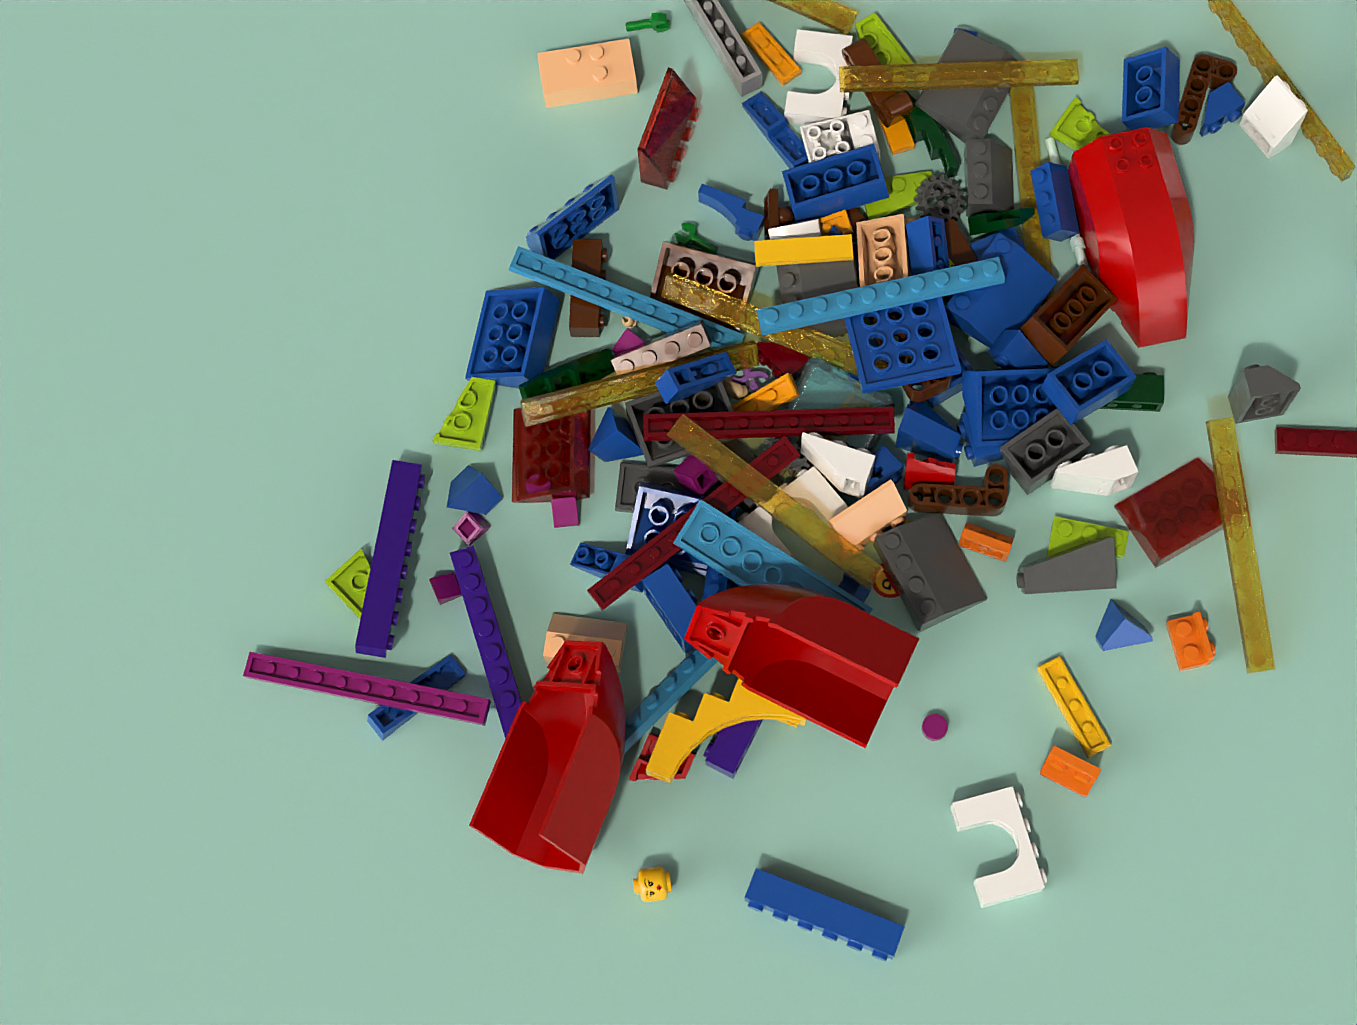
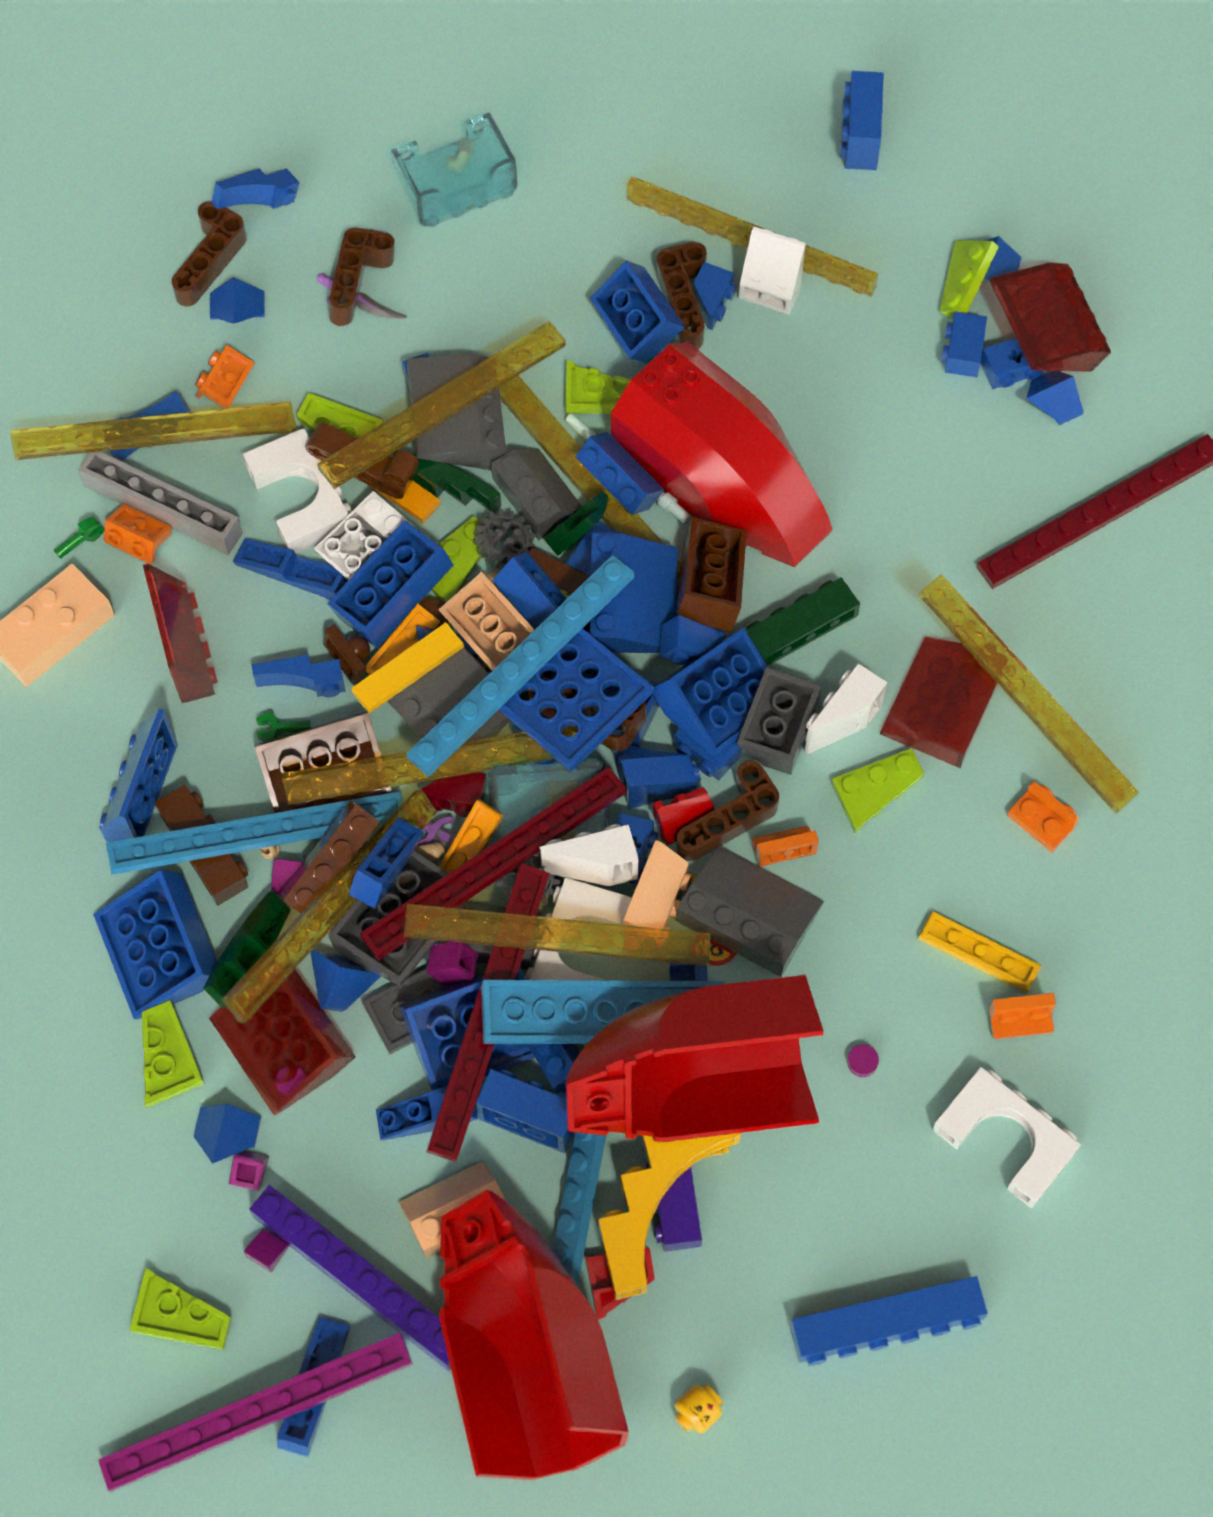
camera: 40 degrees left, 5 degrees down
(388, 559) = (187, 1260): dark purple brick -> none
(565, 512) = (338, 1089): magenta slope -> none
(689, 42) = (135, 532): none -> orange bracket
(771, 54) = (230, 494): light orange tile -> none
(801, 229) = (385, 652): white slope -> none
(1075, 569) = (889, 816): dark grey slope -> none
(1088, 382) = (779, 625): blue brick -> none
(1120, 629) = (970, 848): blue slope -> none
(1261, 394) = (945, 537): dark grey slope -> none

